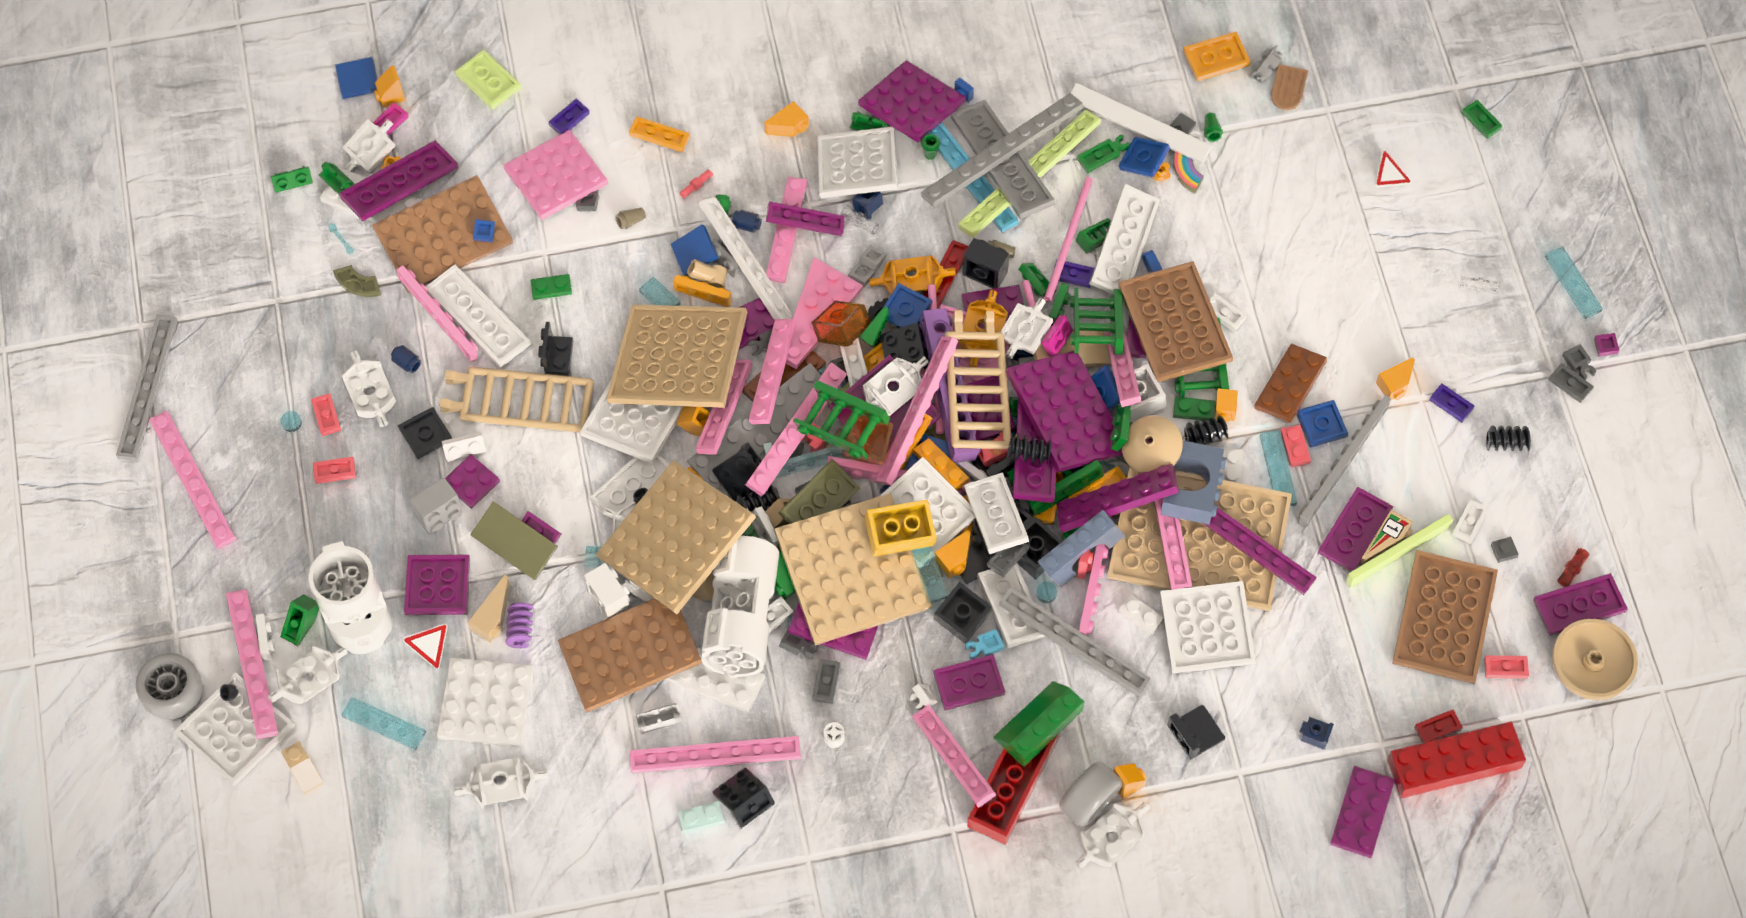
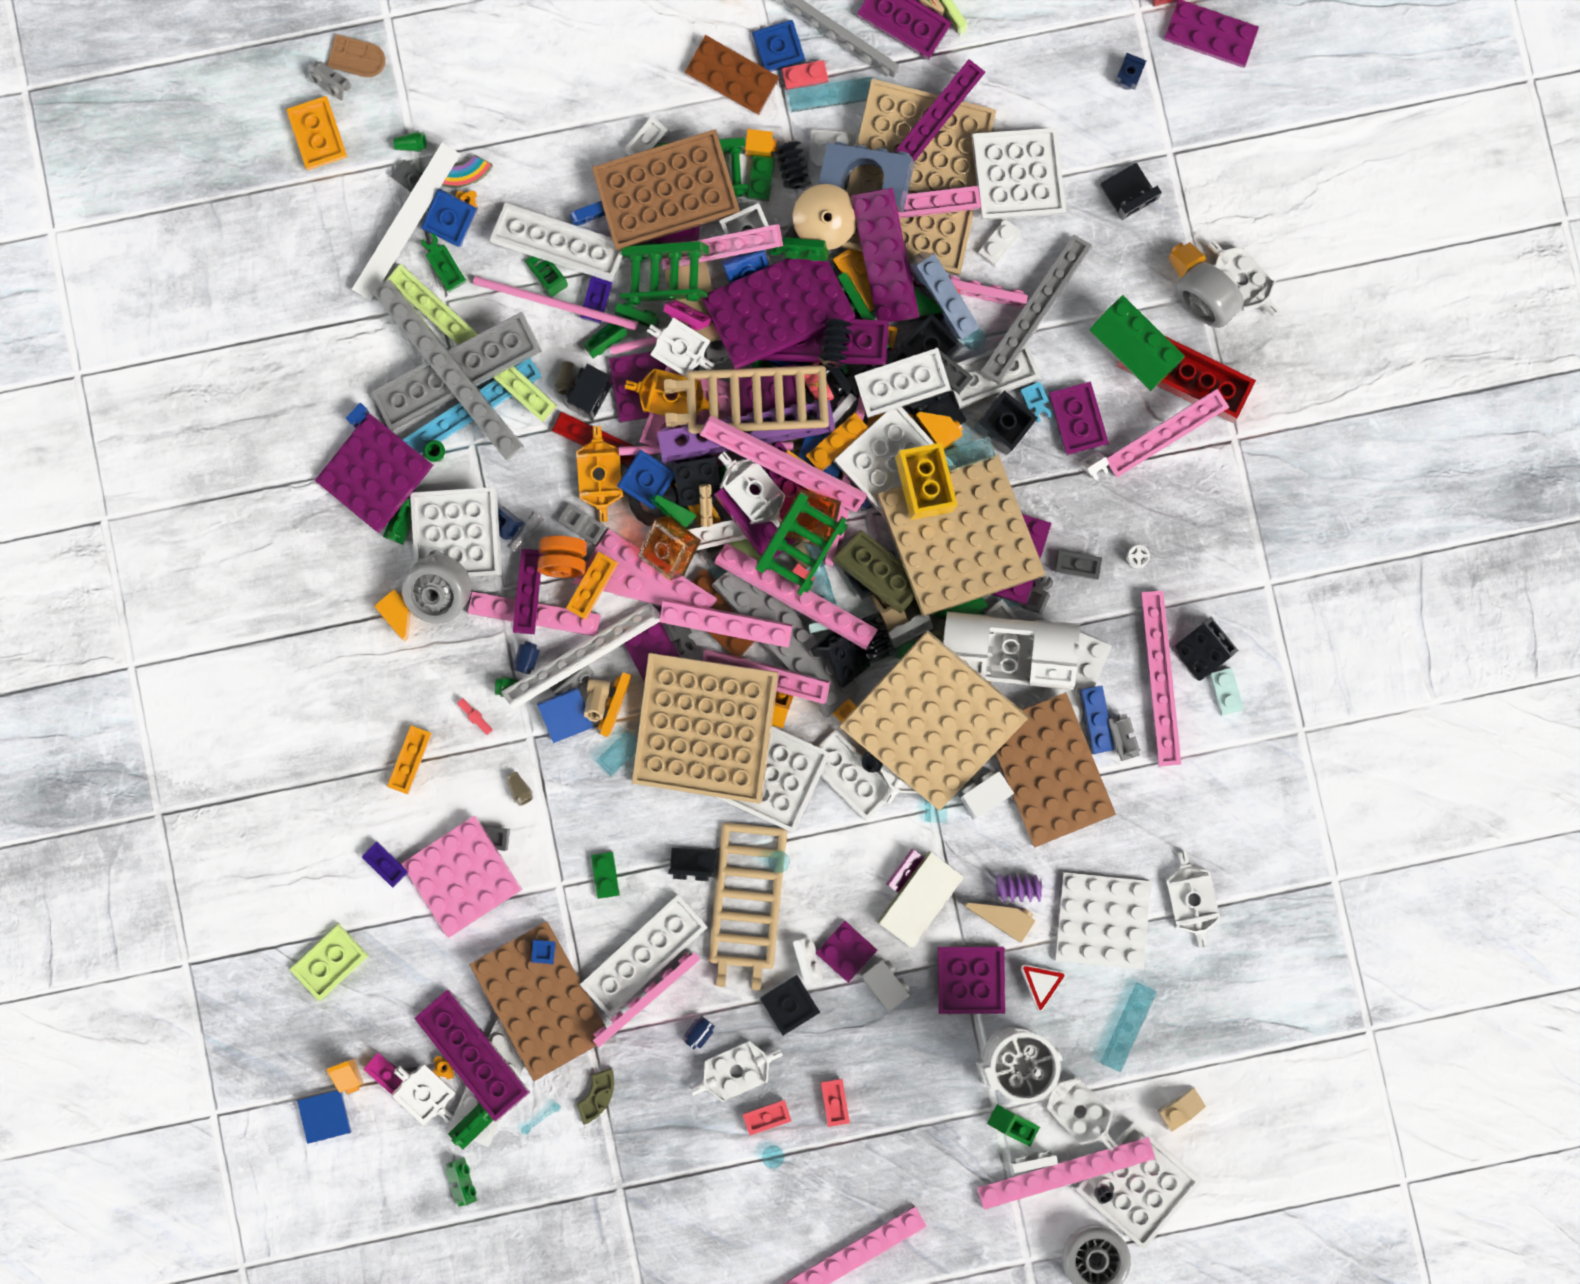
camera: 90 degrees left, 20 degrees up
(554, 421) = (779, 861): none -> clear light blue tile
(677, 693) = (1096, 719): none -> blue plate
(807, 145) = (436, 588): none -> light grey wheel
(809, 267) = (592, 585): none -> light orange plate
(835, 242) = (562, 556): none -> orange wheel
(880, 351) = (705, 505): none -> tan axle

